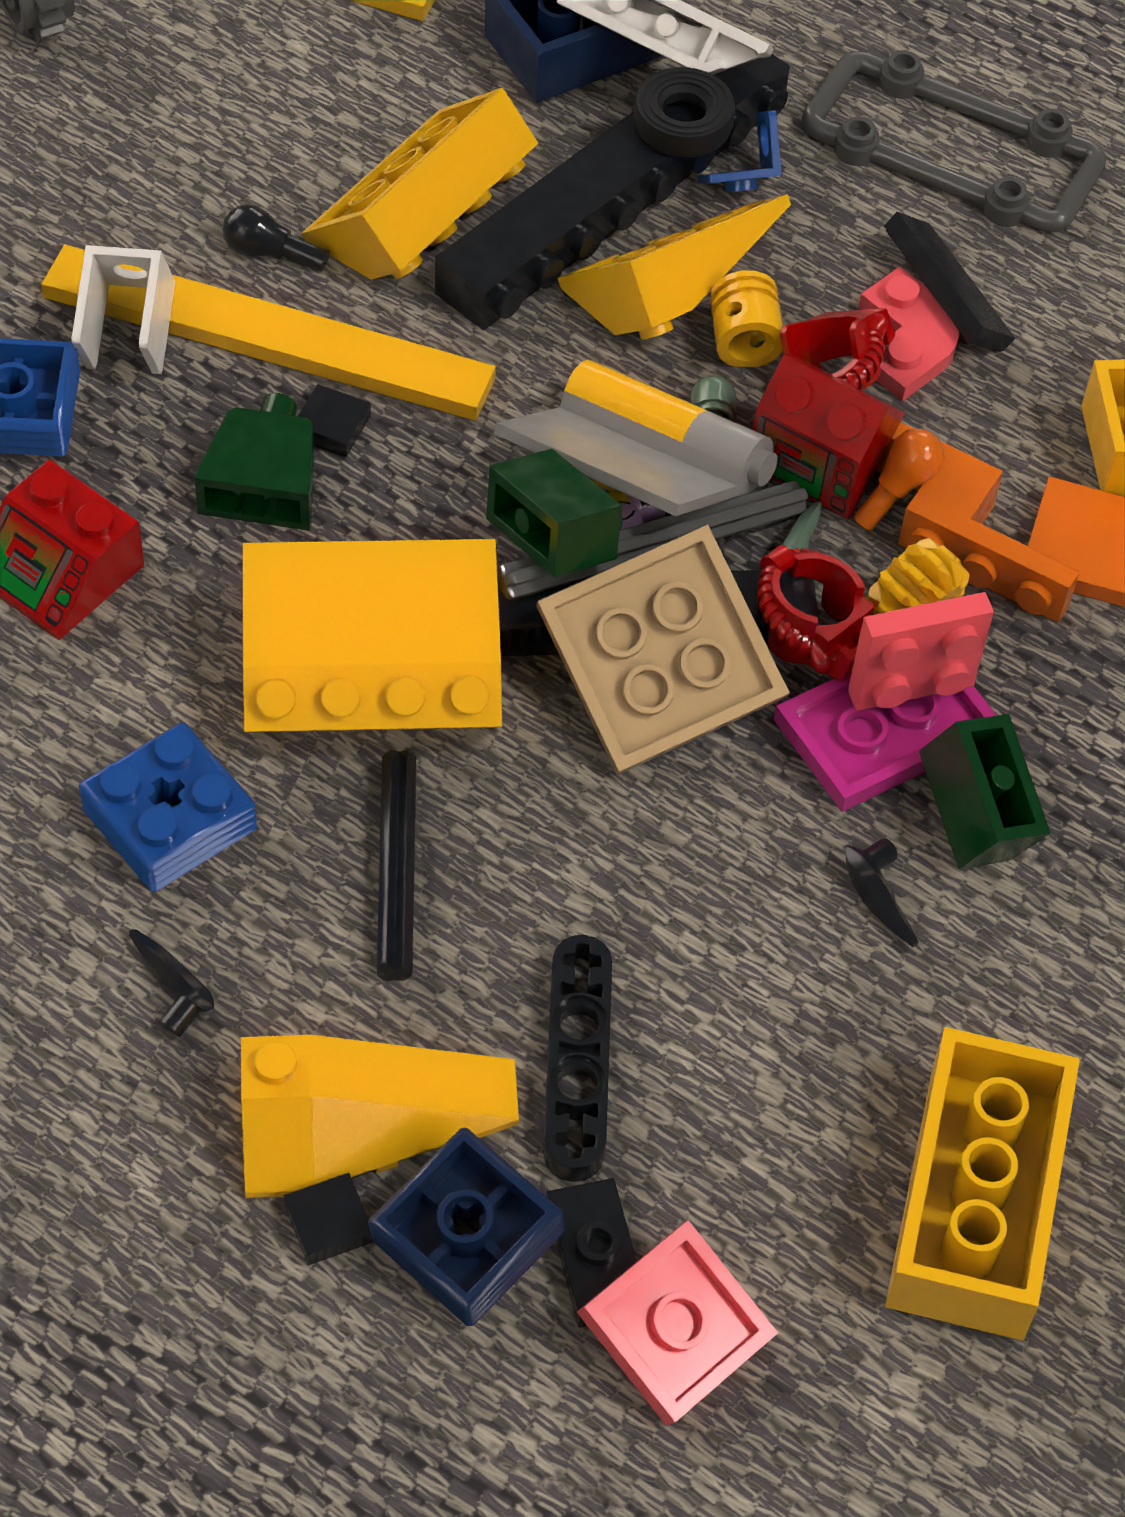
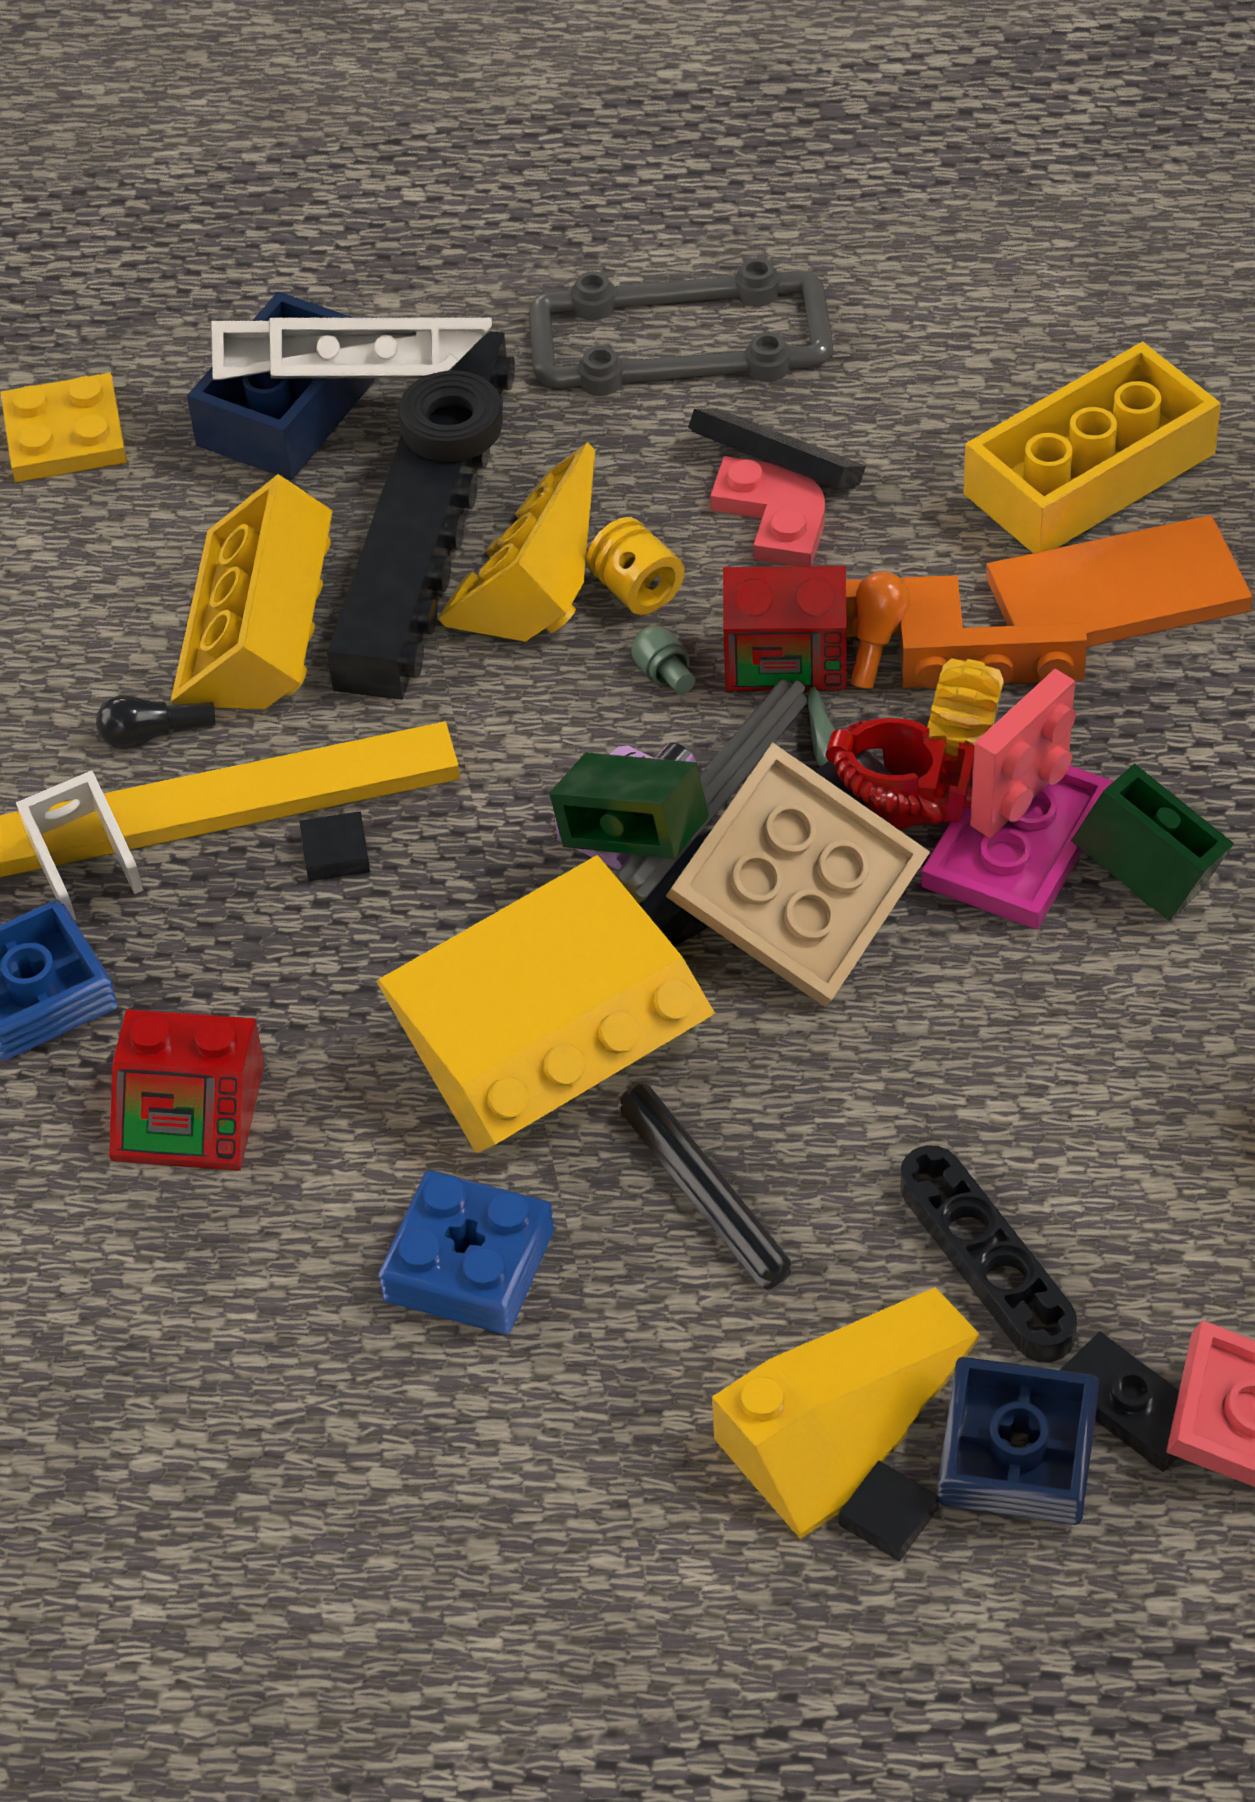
camera: 25 degrees left, 5 degrees down
(190, 992) = (598, 1391): black bar -> none
(260, 466) = (314, 916): dark green torso -> none
(646, 442) = (641, 708): light grey door -> none
(769, 158) = (543, 428): blue bracket -> none
(840, 335) = (725, 537): red piece -> none
(874, 890) = (1116, 976): black bar -> none

